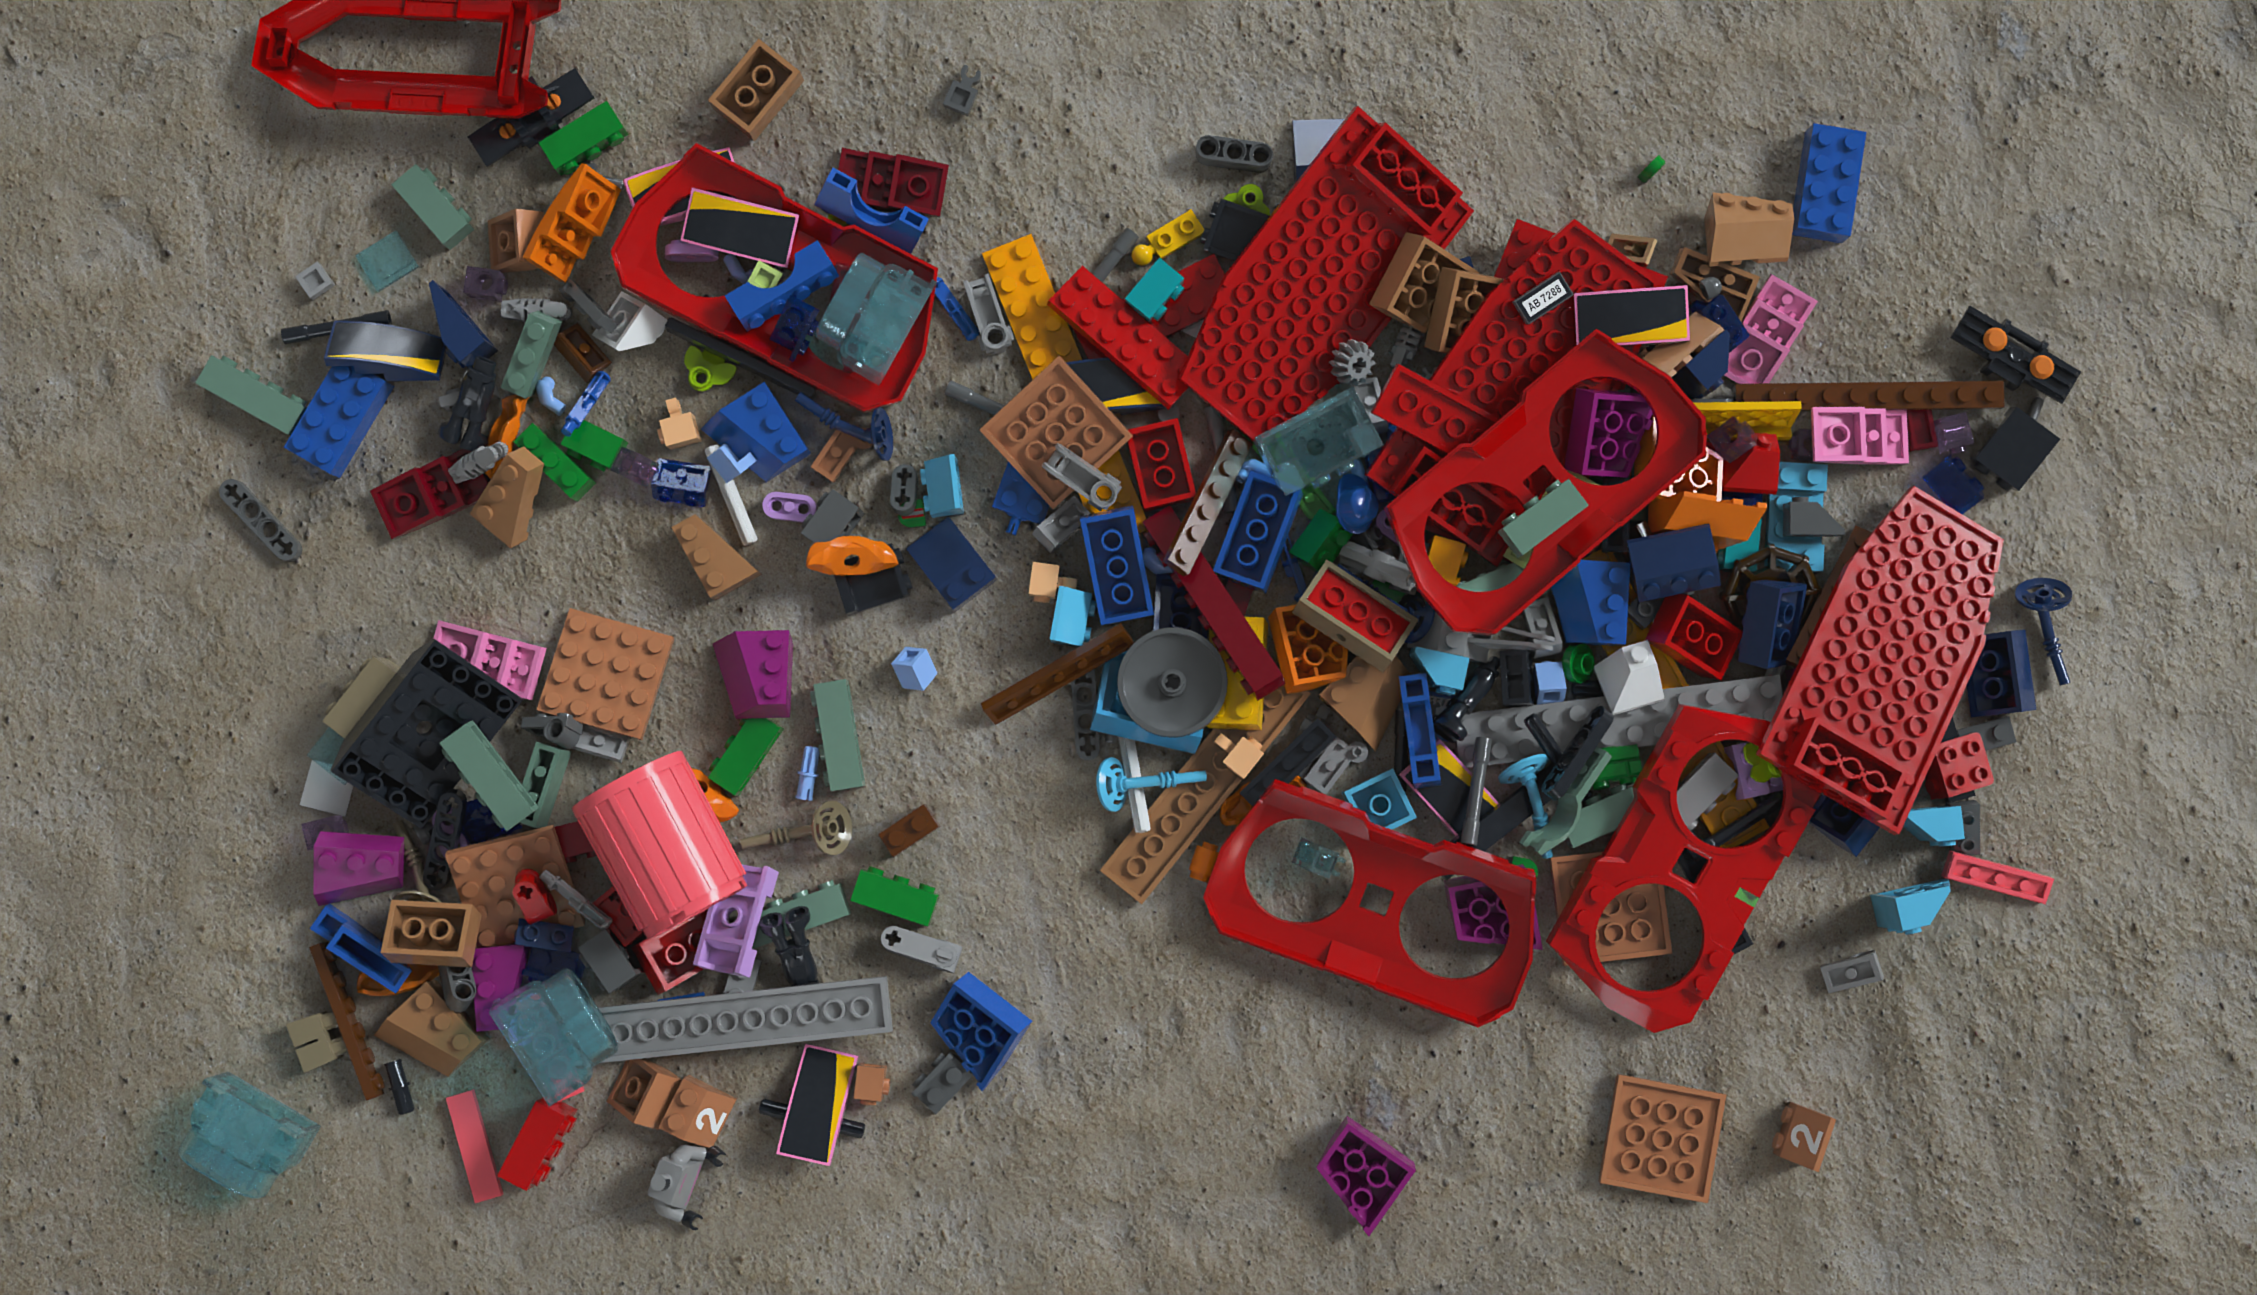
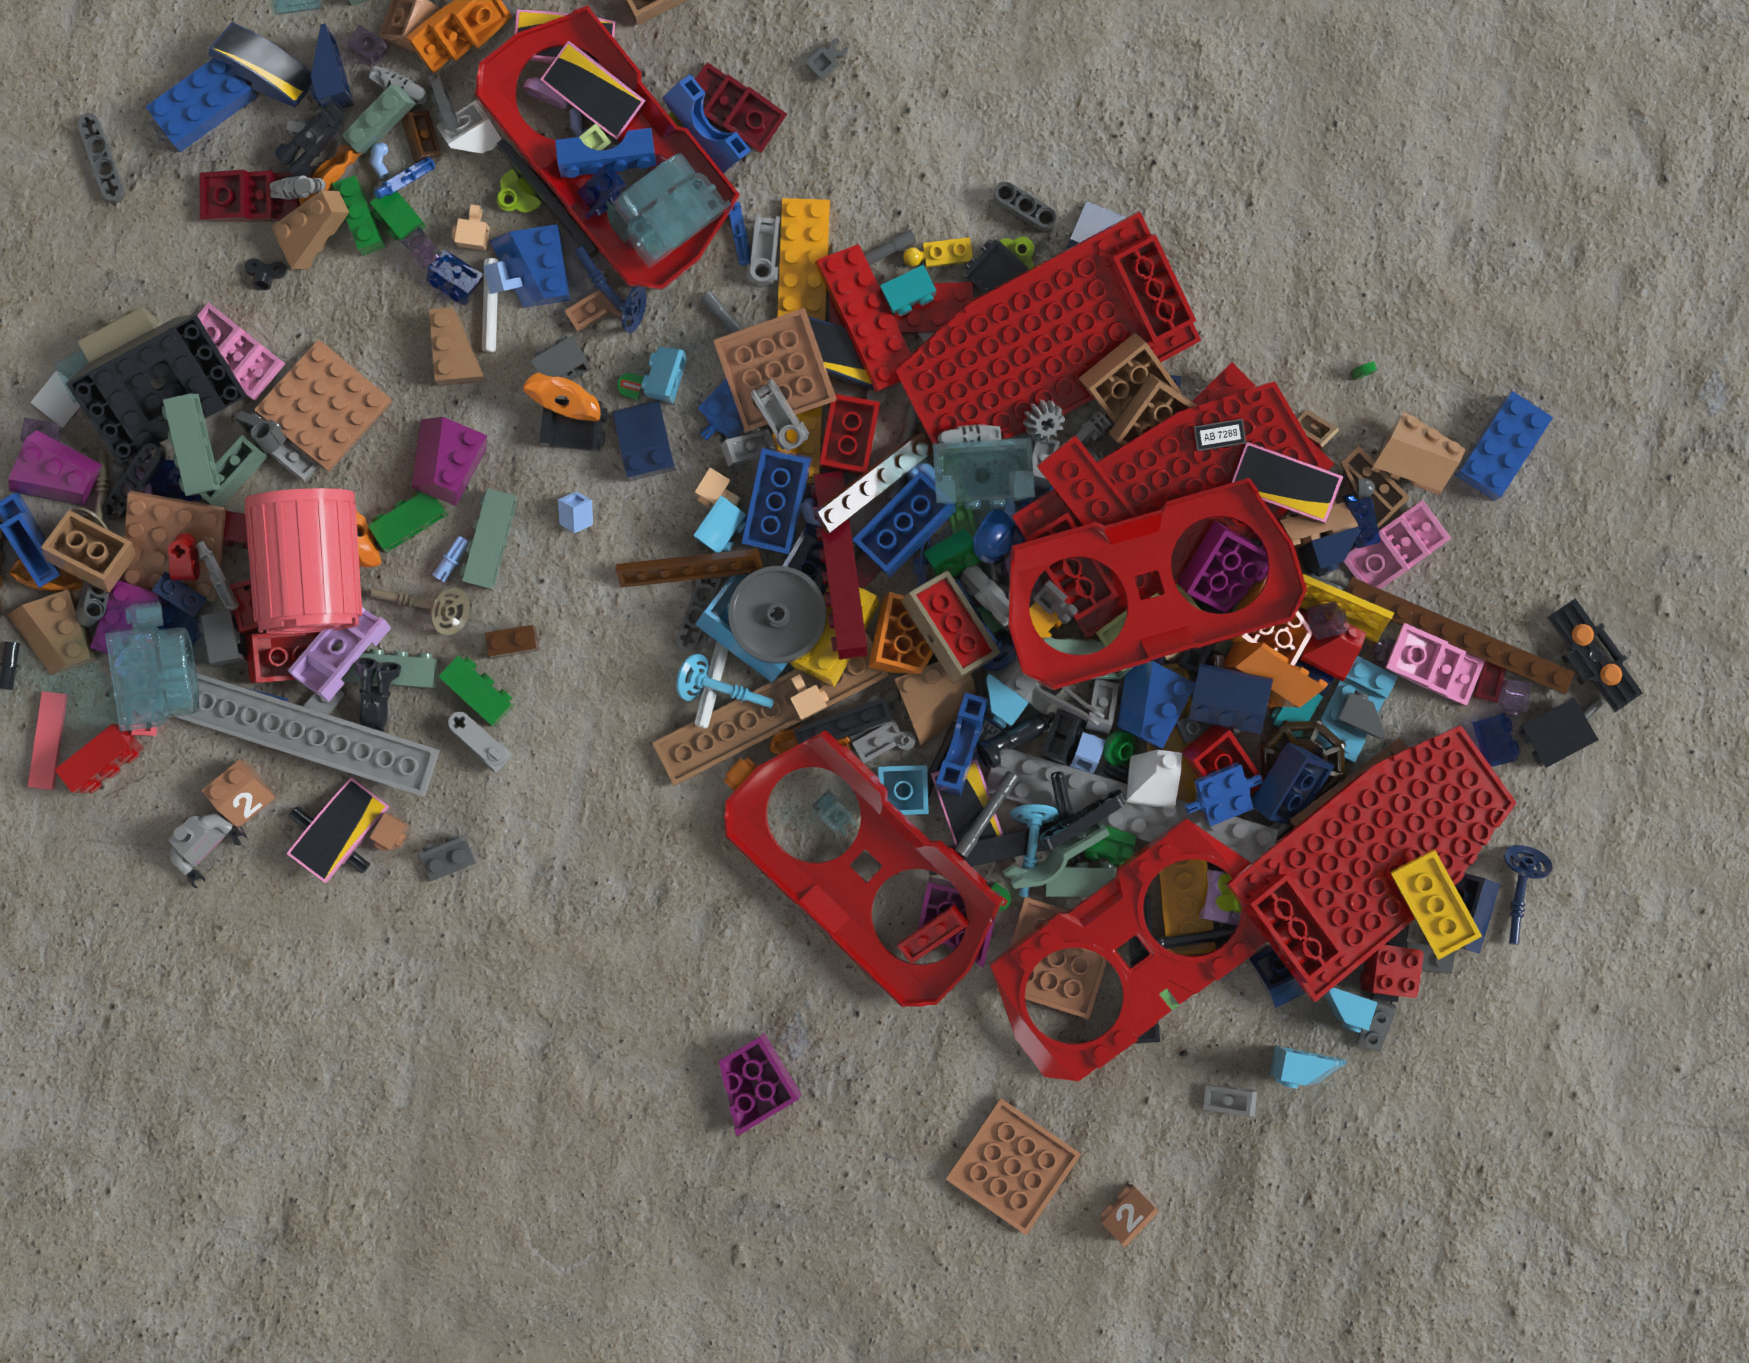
camera: 25 degrees right, 0 degrees up
(251, 395) = (138, 52): sand green brick -> none
(307, 332) = (206, 22): black piece -> none
(483, 564) = (264, 273): none -> black piece
(519, 972) = (145, 614): none -> clear light blue brick
(644, 1092) = (203, 757): nougat slope -> none
(790, 506) = (533, 336): lavender plate -> none
(909, 490) = (636, 365): dark grey beam -> none
(979, 1027) = (497, 826): blue wedge -> none
(1285, 410) = (970, 433): none -> light grey hinge
(1448, 542) = (1052, 600): none -> dark grey plate
(1476, 938) = (932, 934): none -> red tile
(1542, 517) = (1136, 611): sand green brick -> none
(1702, 787) = (1172, 894): light grey brick -> none
(1709, 663) = (1223, 794): none -> blue plate
(1975, 679) = (1436, 904): none -> yellow plate
(1997, 877) = (1385, 1077): coral tile -> none

